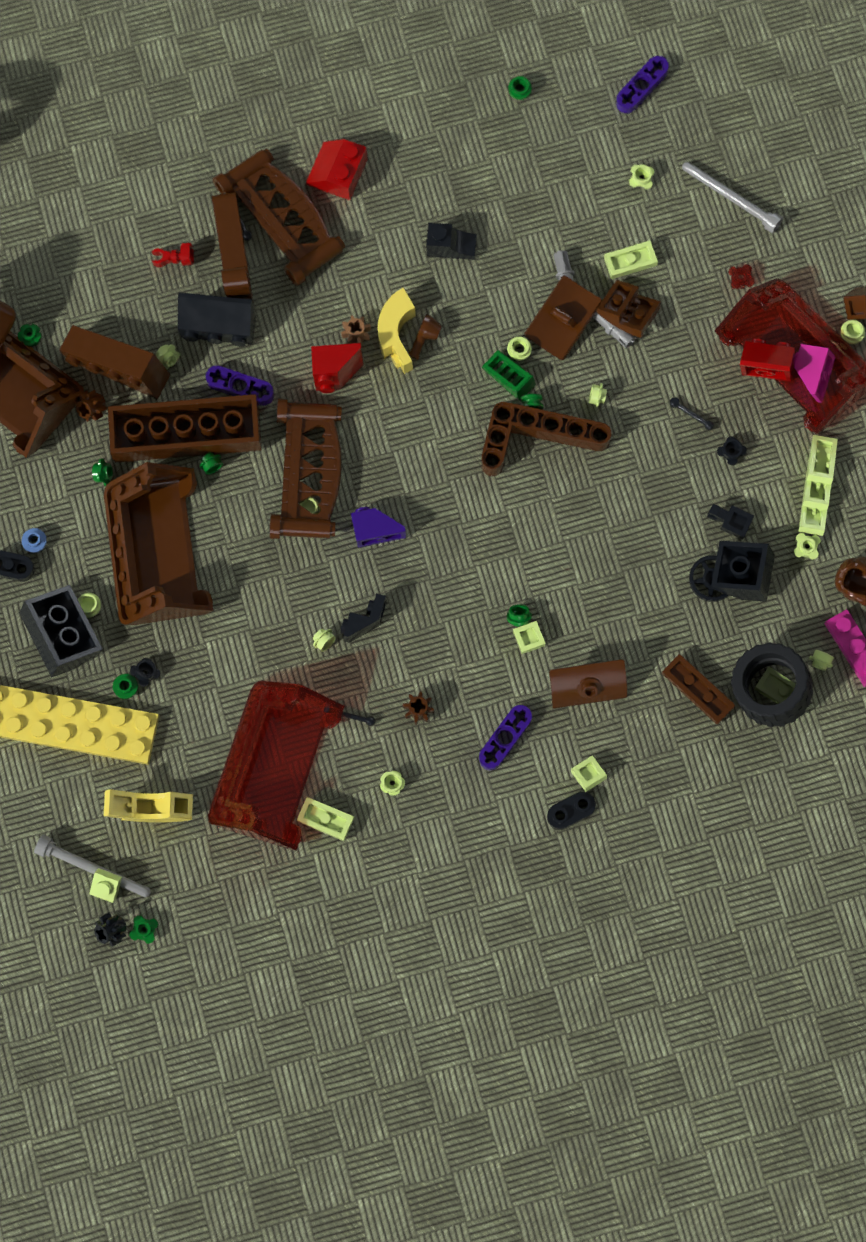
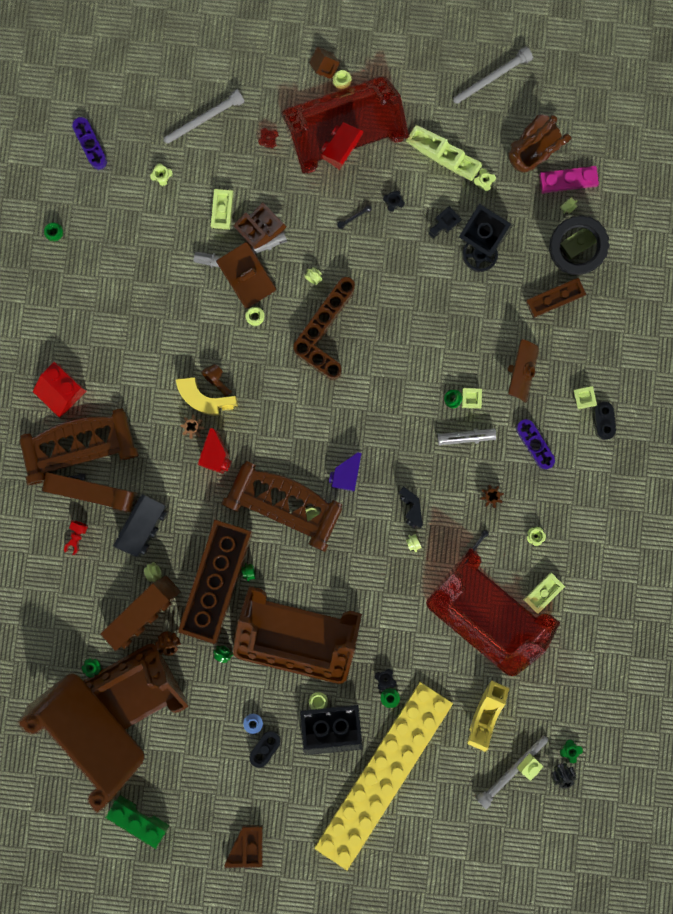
camera: 70 degrees left, 10 degrees up
(221, 385) = (183, 534): dark purple beam -> none
(449, 242) = (153, 331): black arch -> none
(493, 676) = (490, 434): none -> light grey pin
(520, 385) = (275, 322): green slope -> none
(533, 401) = (300, 323): green bush -> none
(814, 368) = (361, 116): dark pink slope -> none

